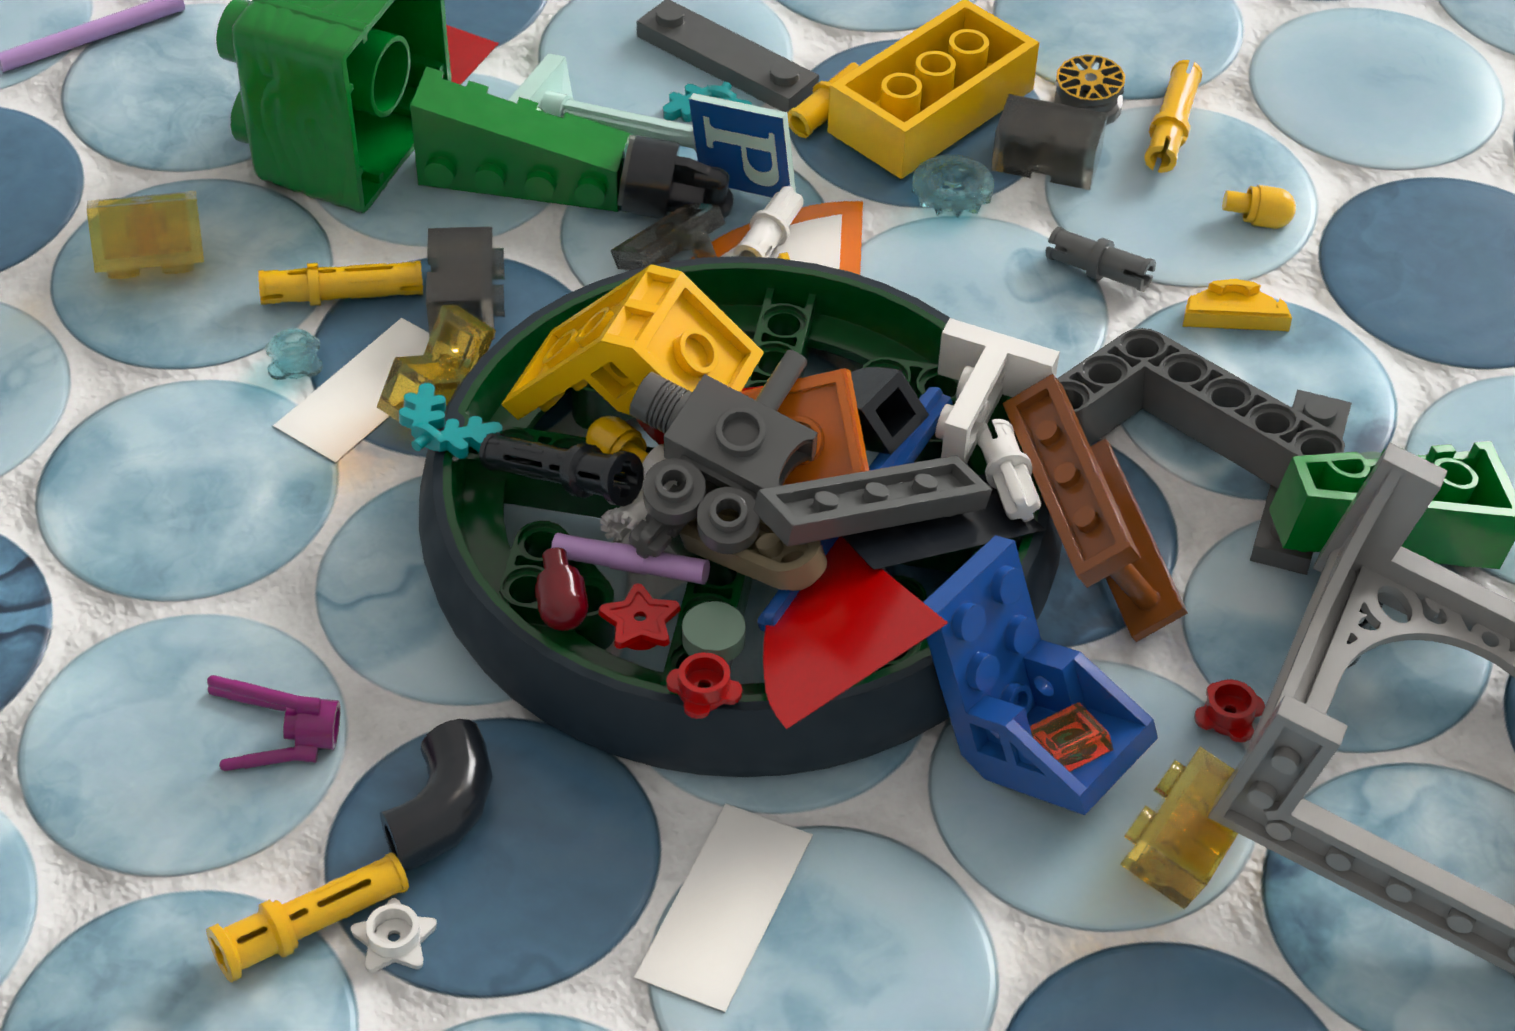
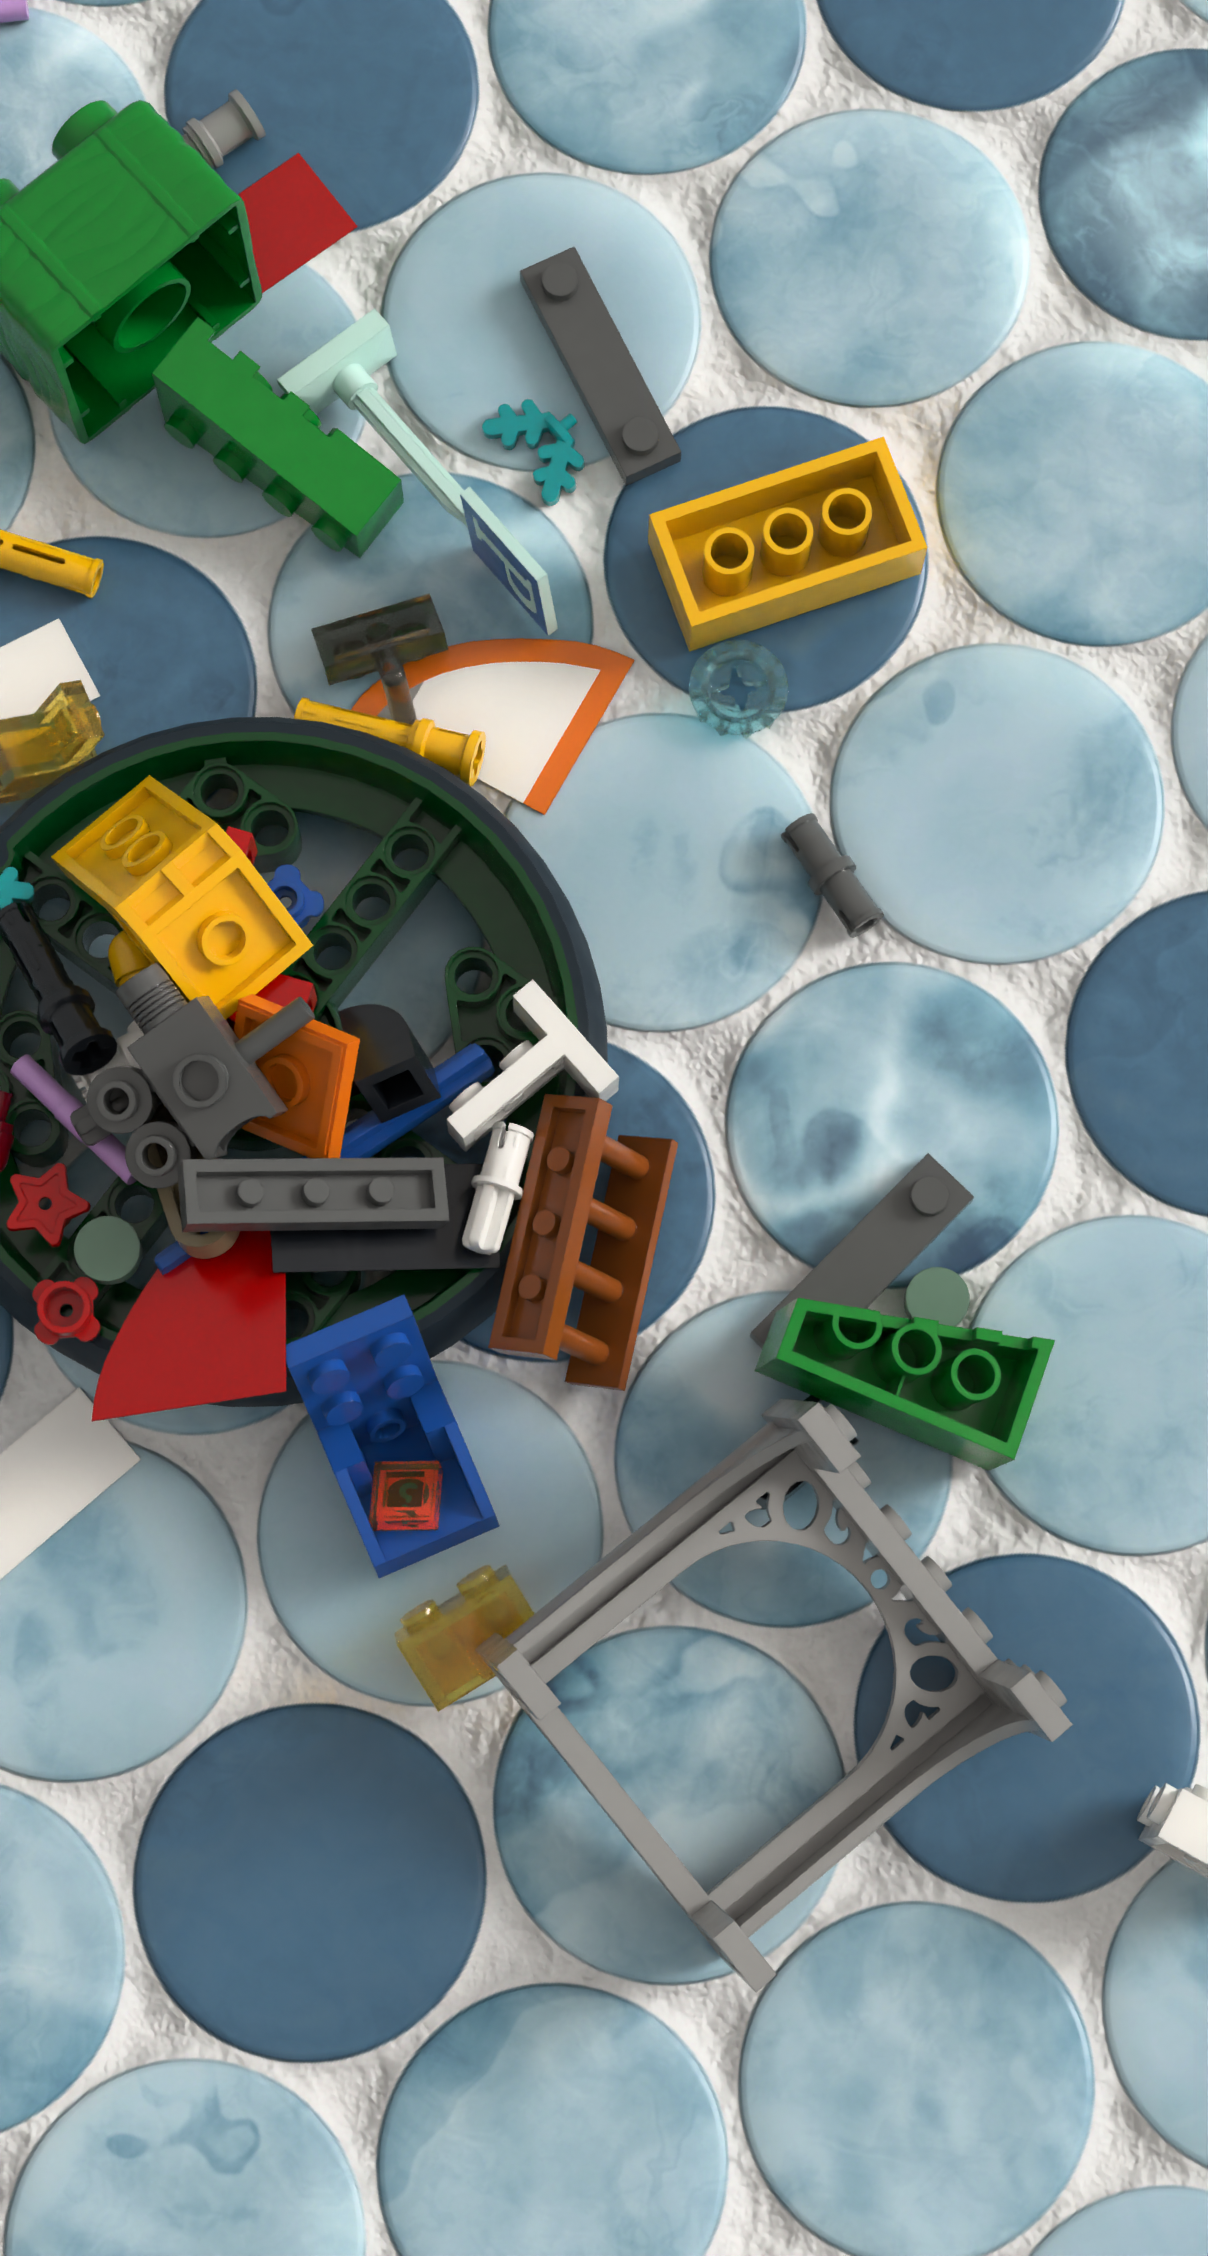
camera: 25 degrees right, 30 degrees up
(465, 273) = (129, 624): clear smoke brick -> none
(662, 182) = (402, 554): black piece -> none
(770, 226) = (498, 670): white axle -> none
(815, 108) = (634, 509): yellow axle -> none
(1049, 141) = (881, 673): clear smoke brick -> none
(1090, 88) = (977, 612): dark grey wheel -> none
(1171, 125) = (1033, 711): yellow pin -> none
(1196, 398) = (794, 1137): dark grey beam -> none
(1230, 697) = (604, 1531): red plate -> none
(1236, 306) = (945, 1000): yellow tile -> none
(1262, 206) = (1064, 873): yellow cylinder -> none

